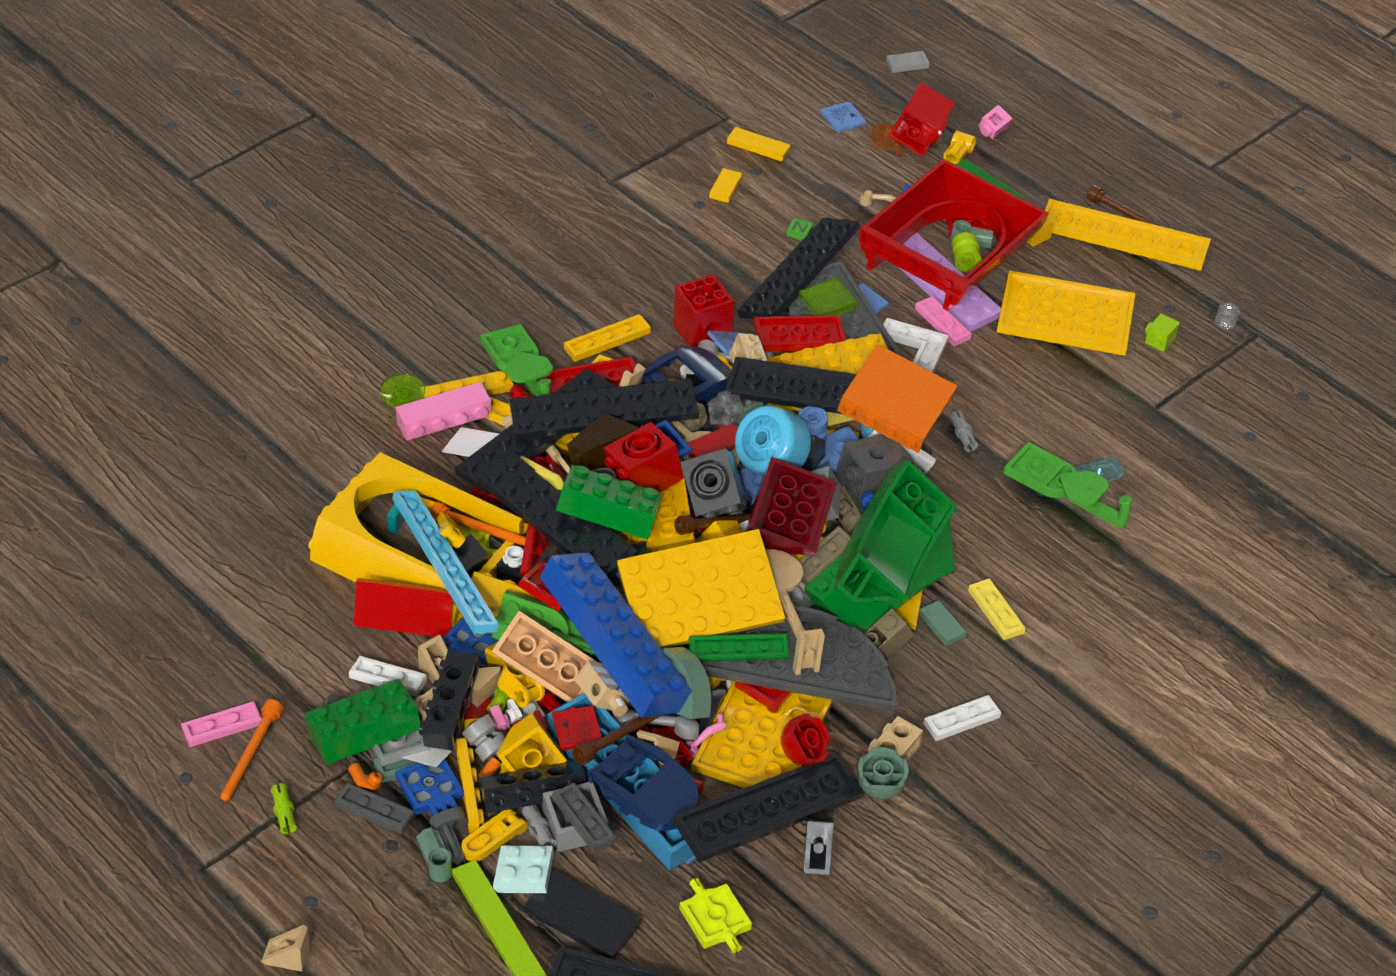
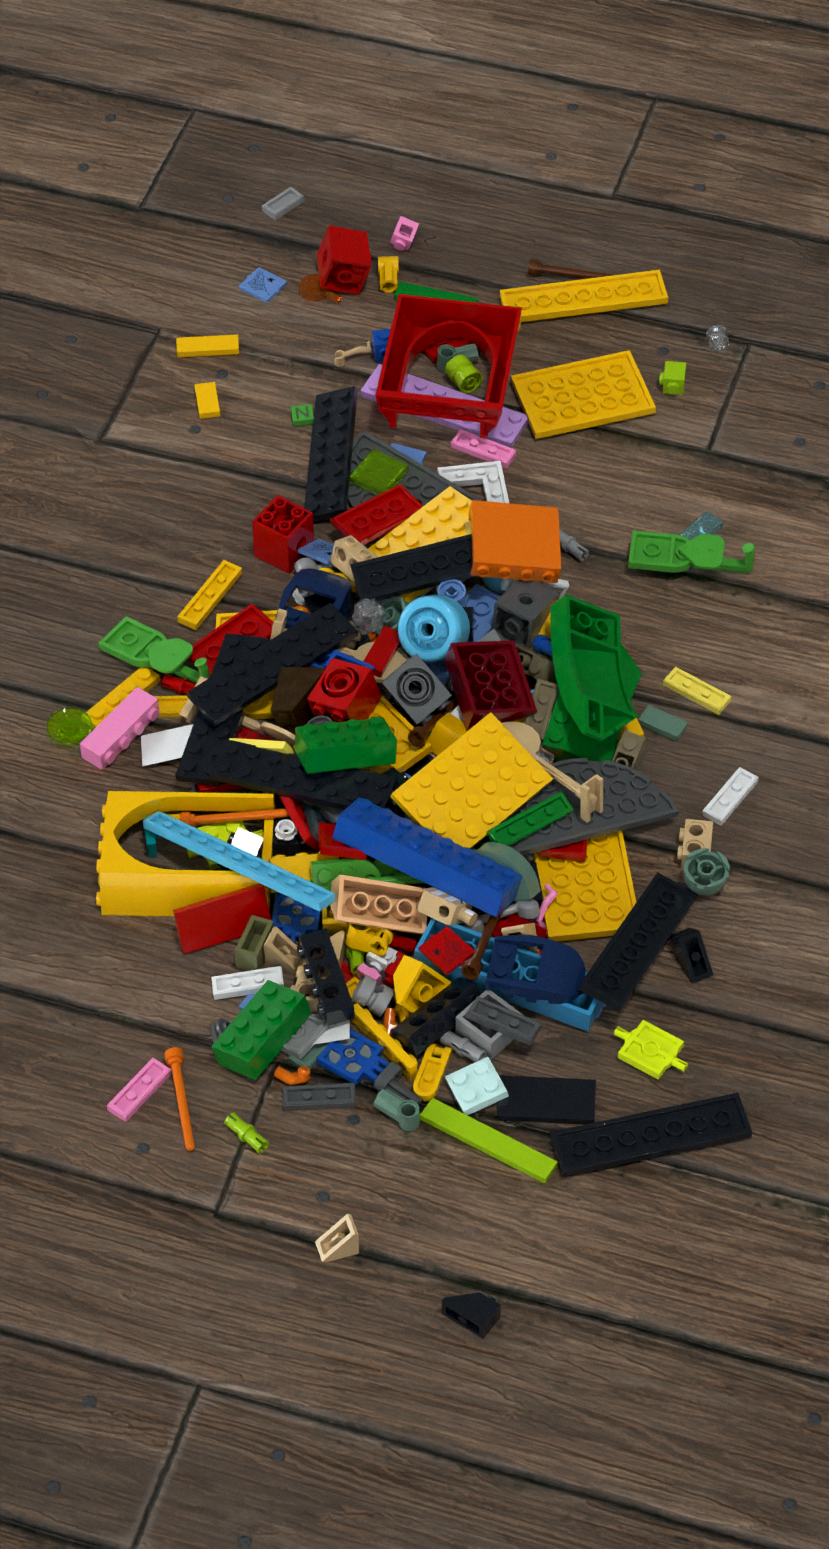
camera: 25 degrees left, 5 degrees up
(404, 645) = (250, 948): none -> olive piece
(450, 530) = (220, 832): yellow plate -> none
(805, 740) = (630, 874): red cylinder -> none

